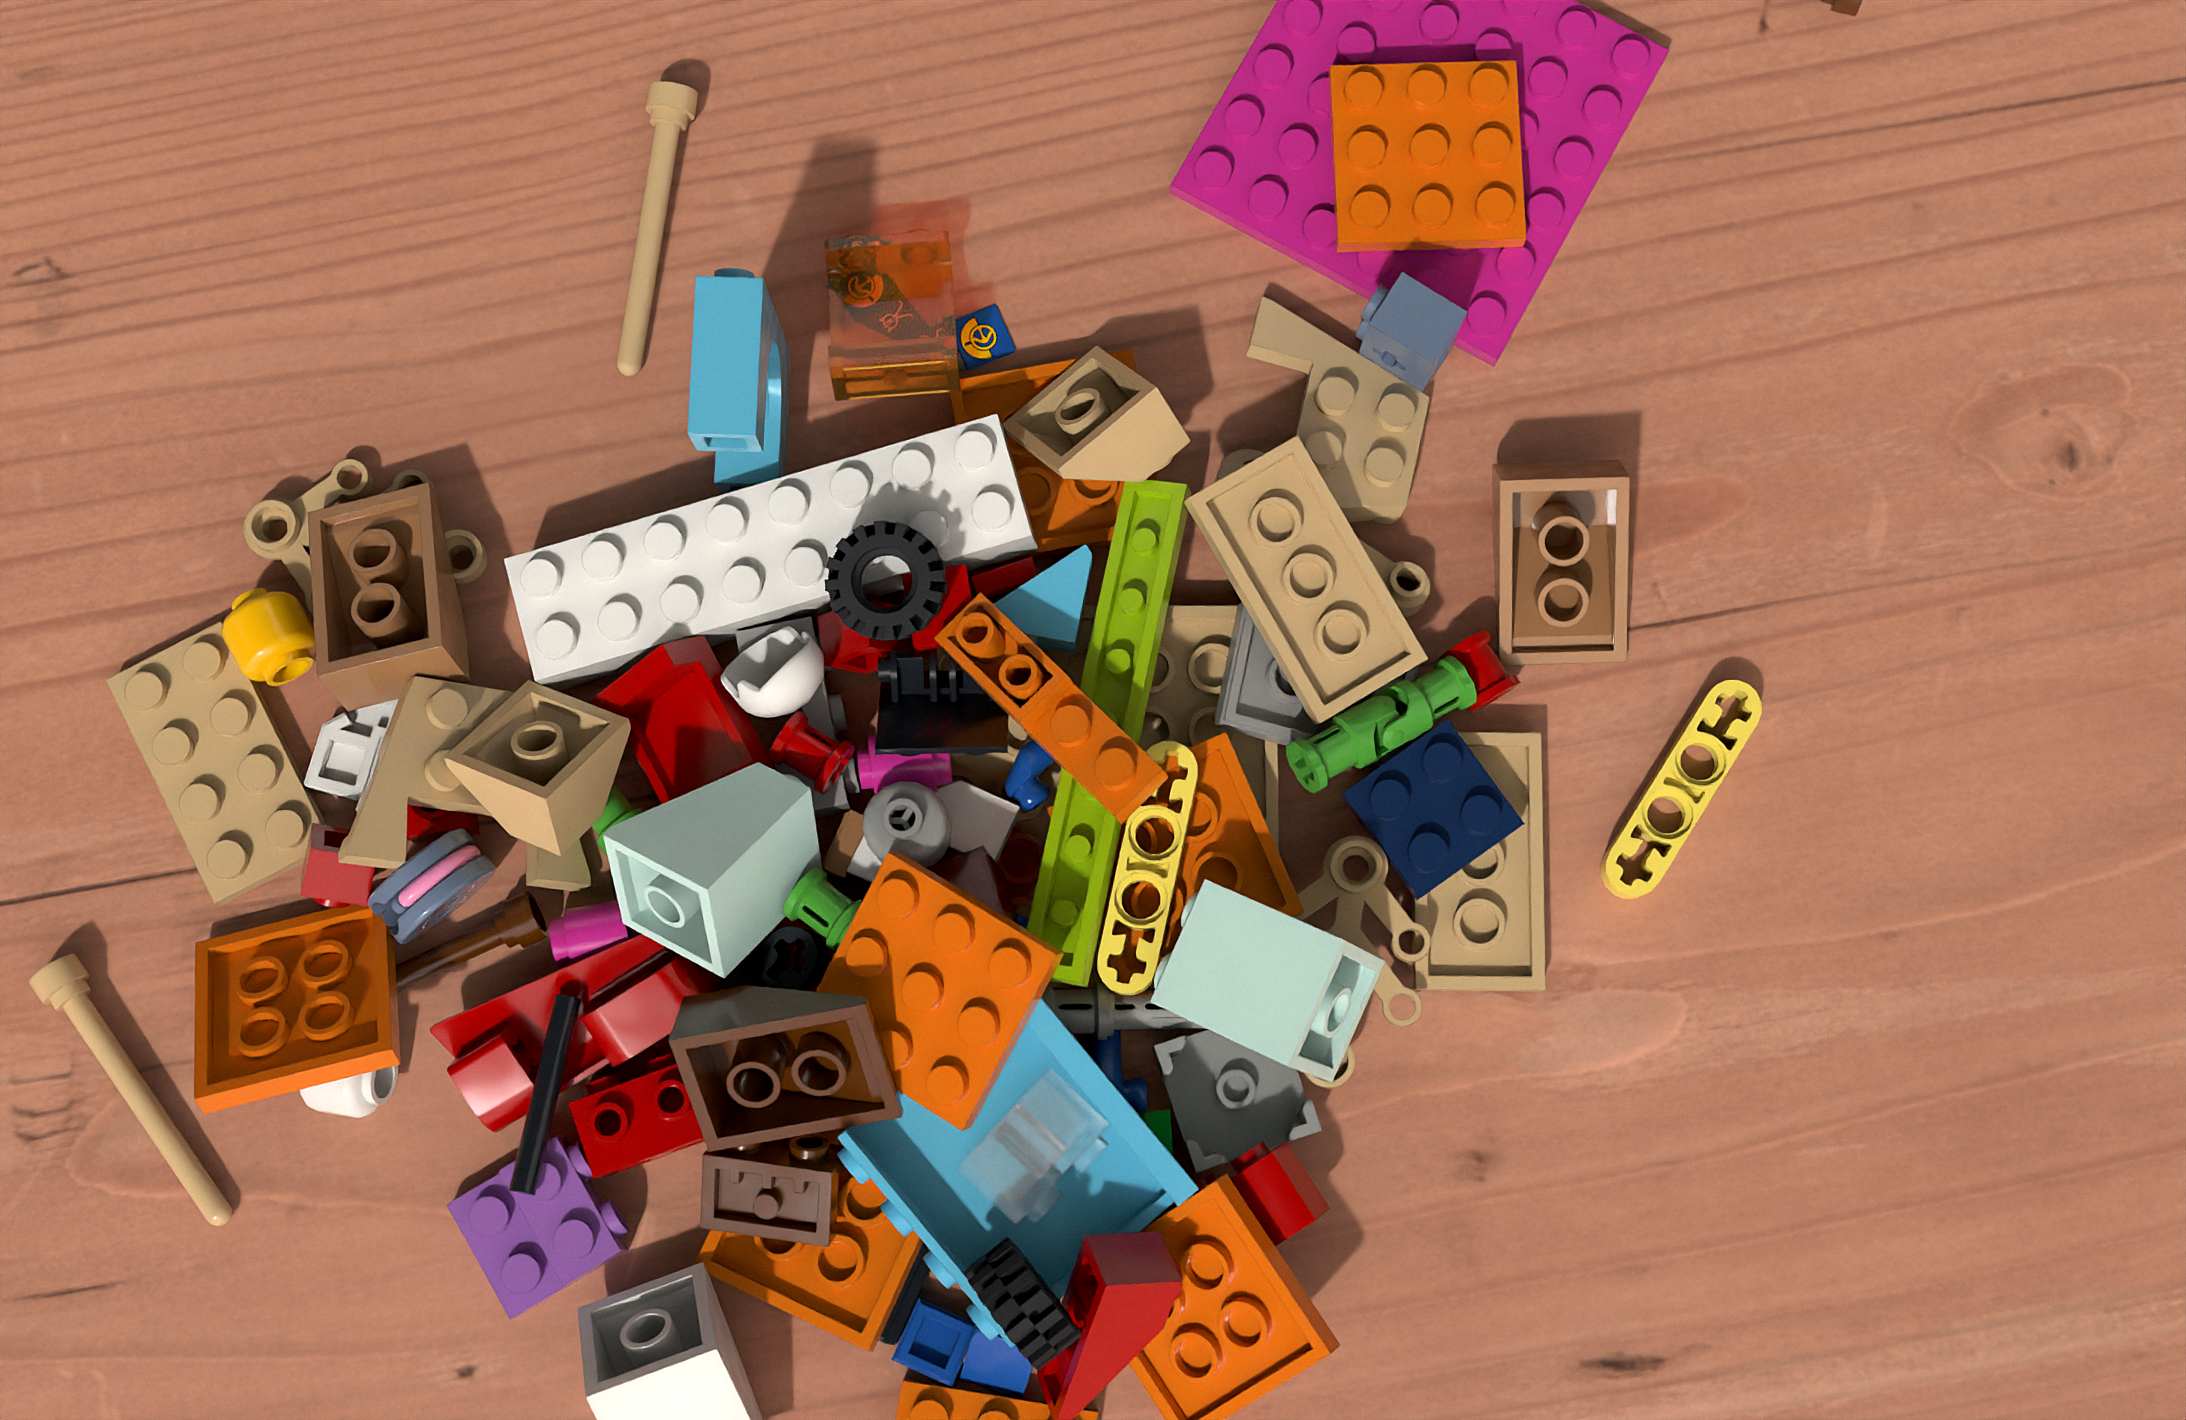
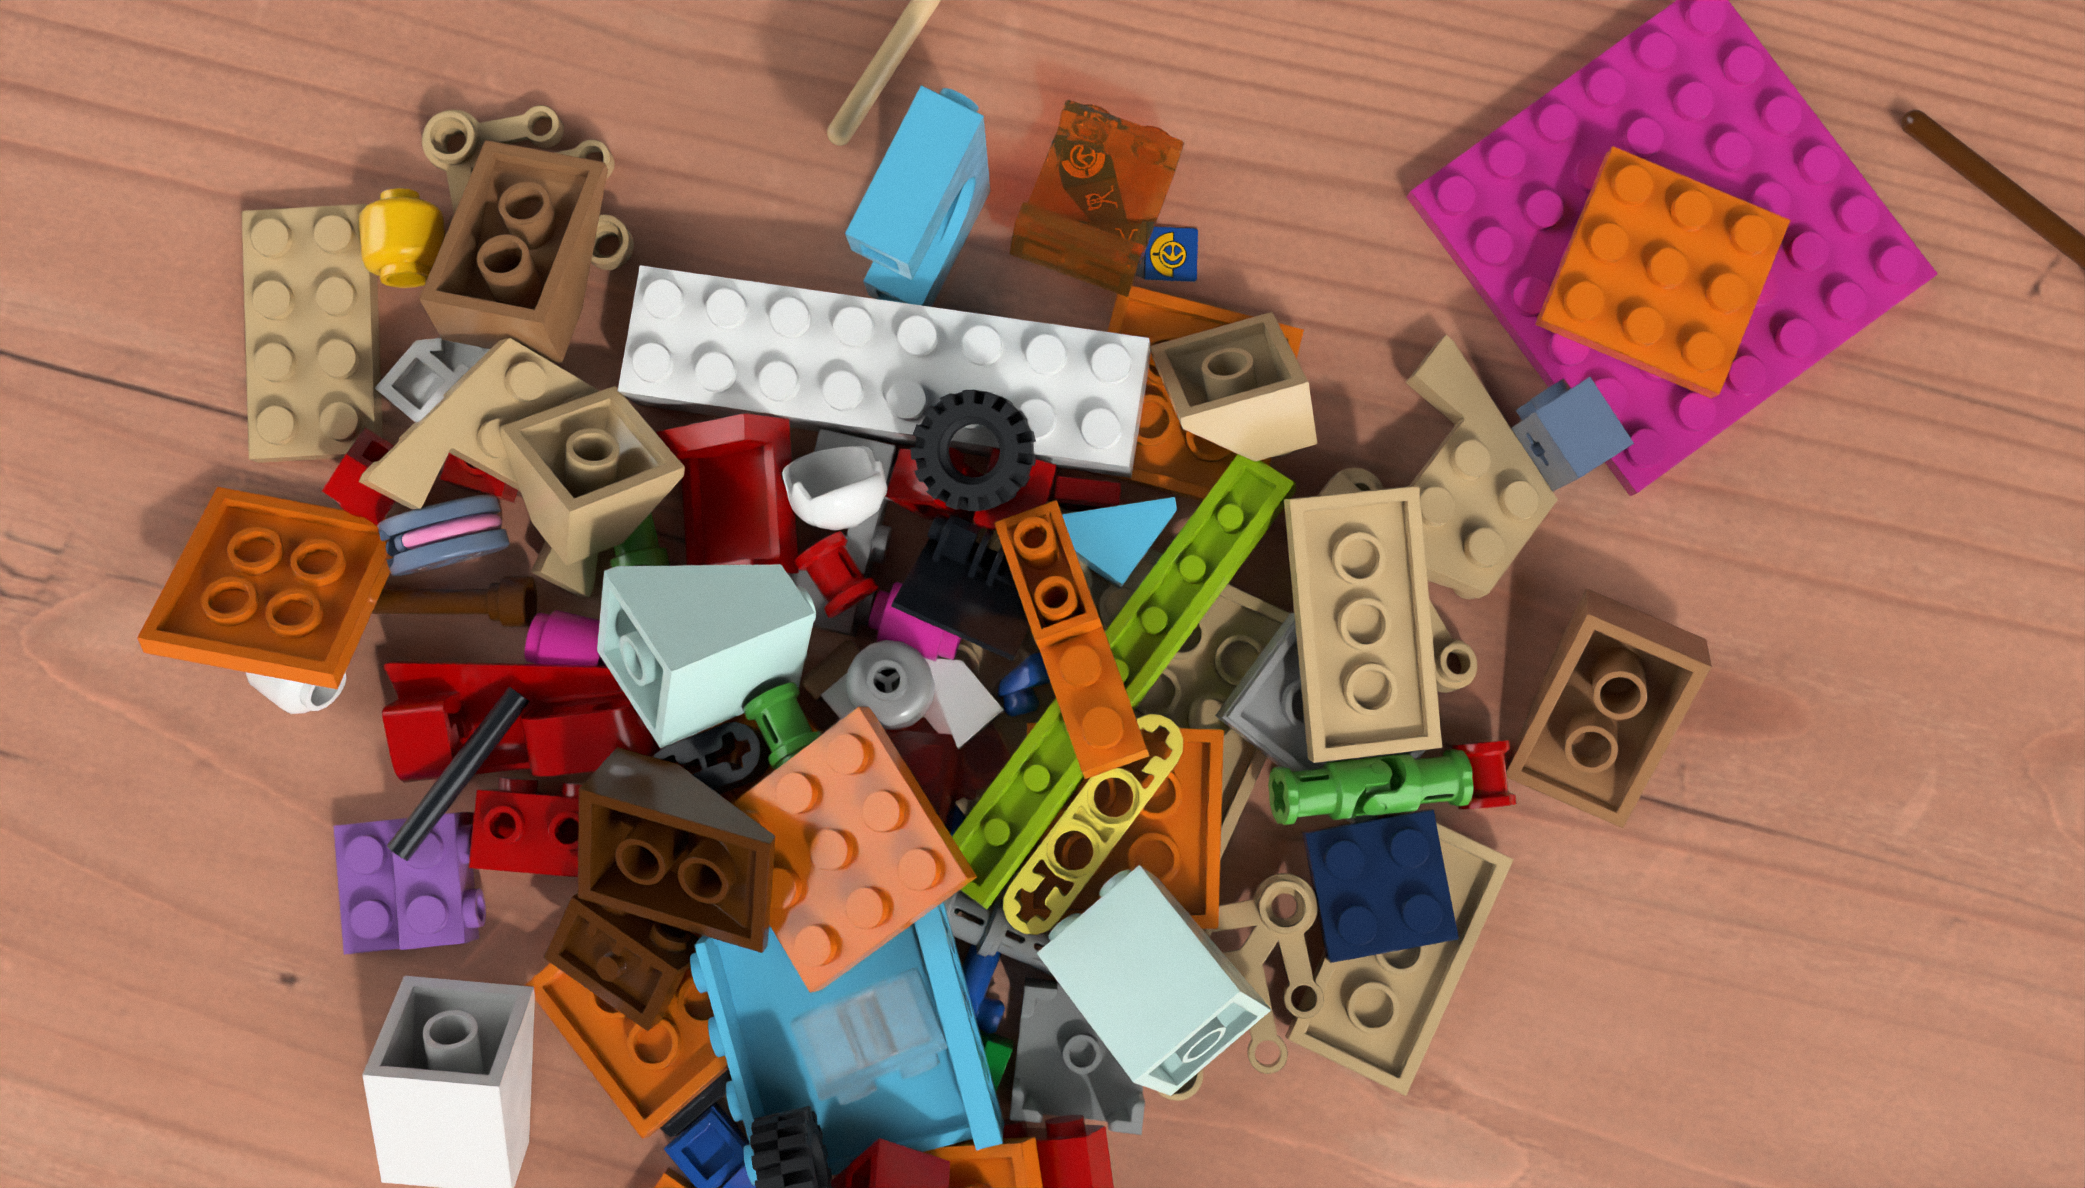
camera: 25 degrees right, 5 degrees up
(66, 988) = (86, 475): tan piece -> none
(1687, 793) = (1622, 977): light yellow beam -> none

